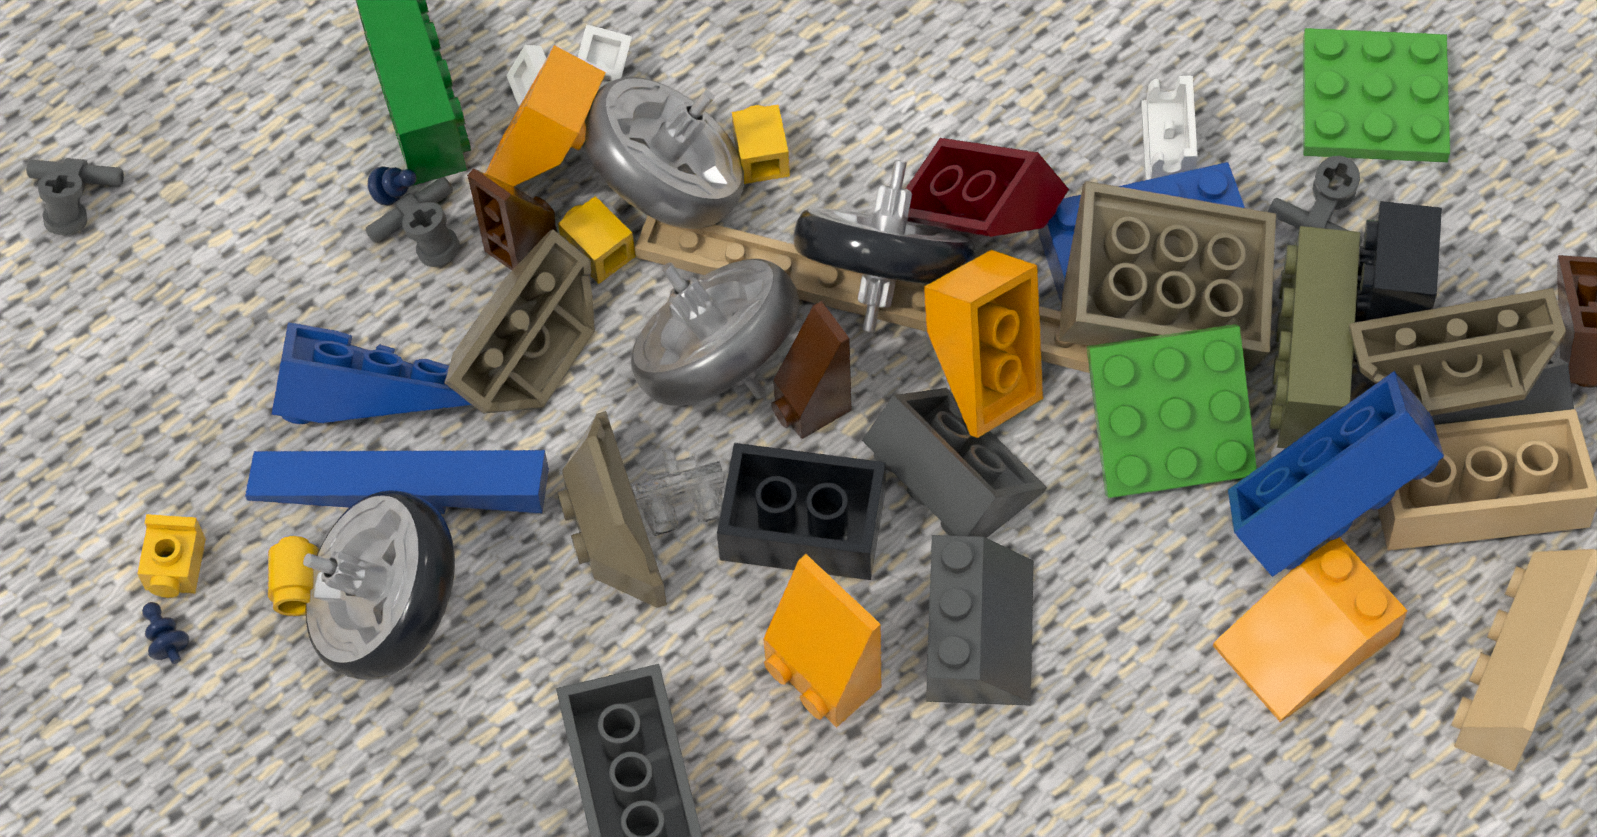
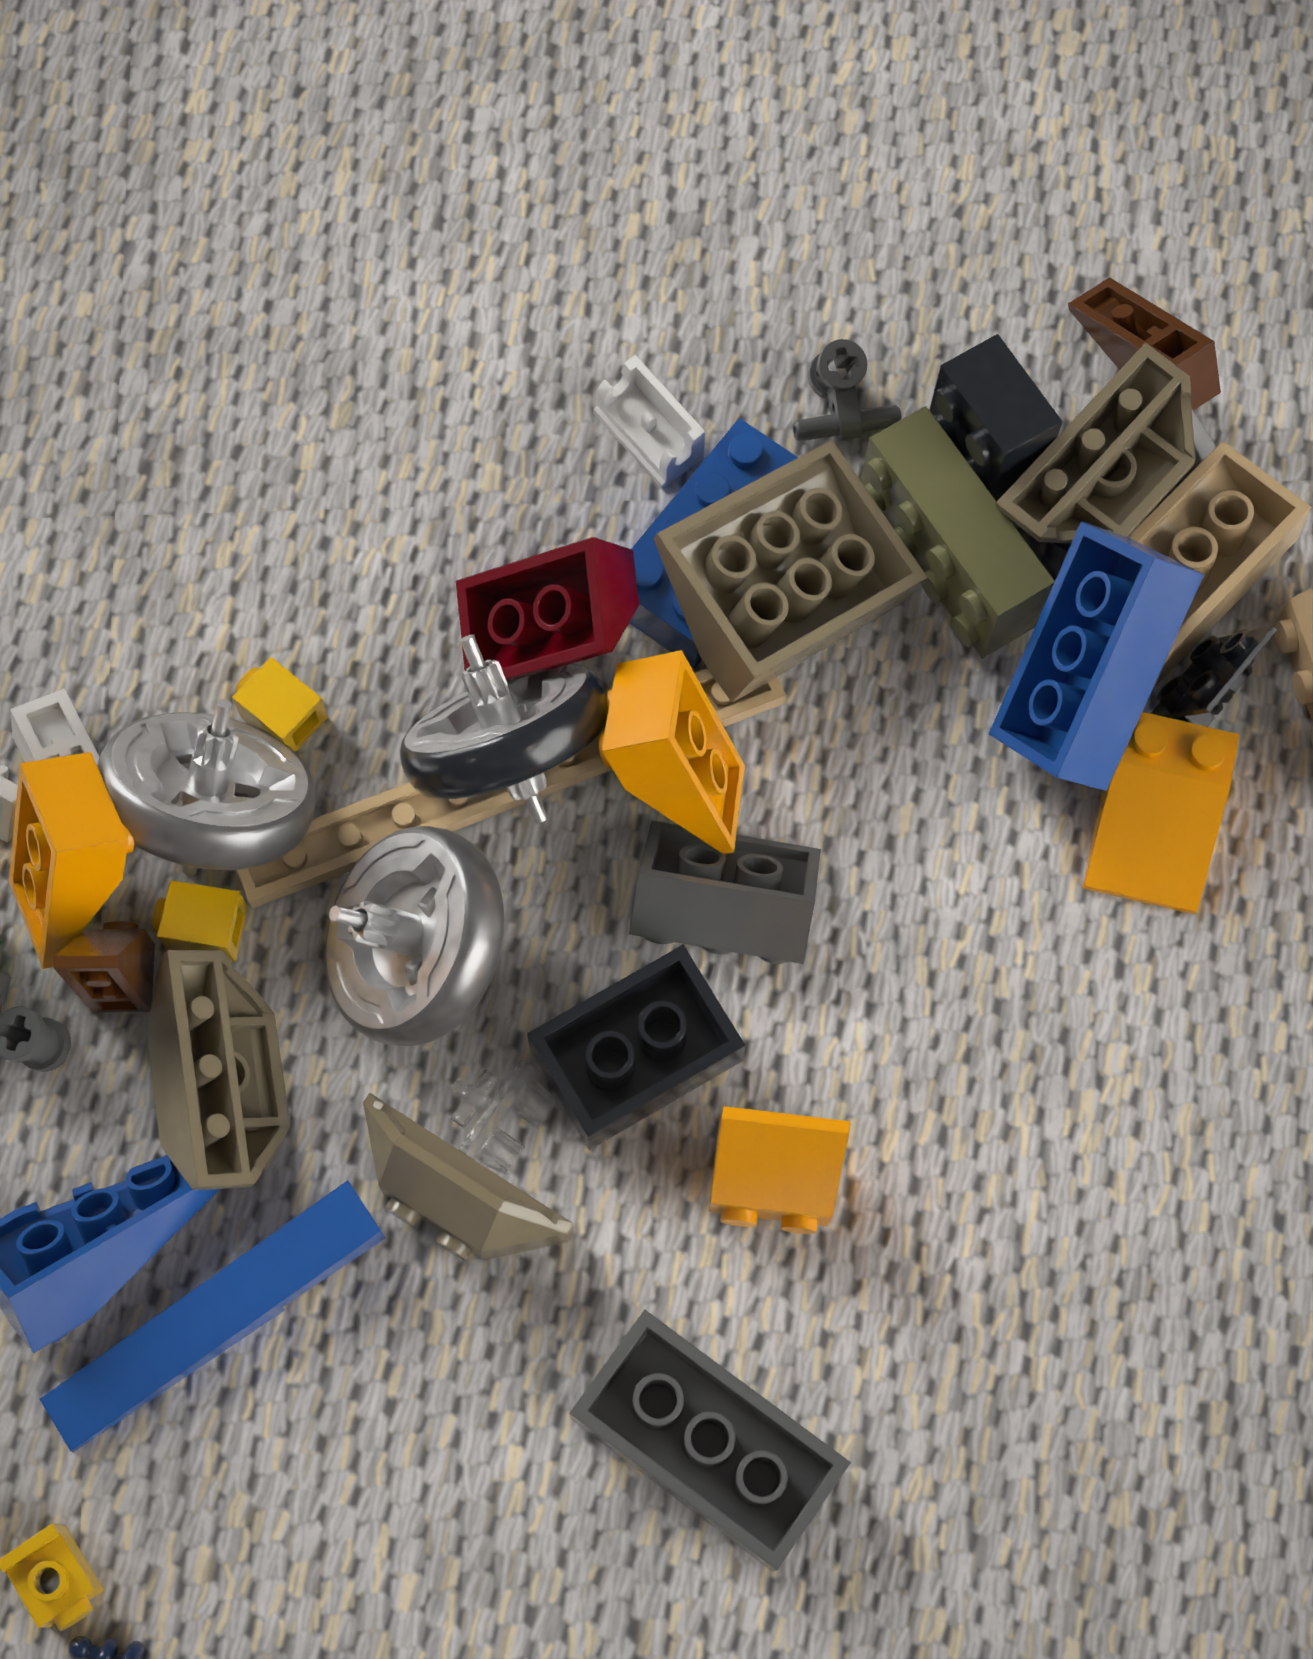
camera: 45 degrees left, 10 degrees up
(288, 577) = (196, 1496): yellow brick -> none
(411, 591) = (278, 1465): flat silver wheel -> none
(815, 375) = (542, 907): reddish brown slope -> none
(979, 623) = (874, 1030): dark grey slope -> none
(1172, 410) = (885, 696): bright green plate -> none
(1375, 95) = (793, 259): bright green plate -> none
(1442, 570) = (1213, 677): none -> black hinge

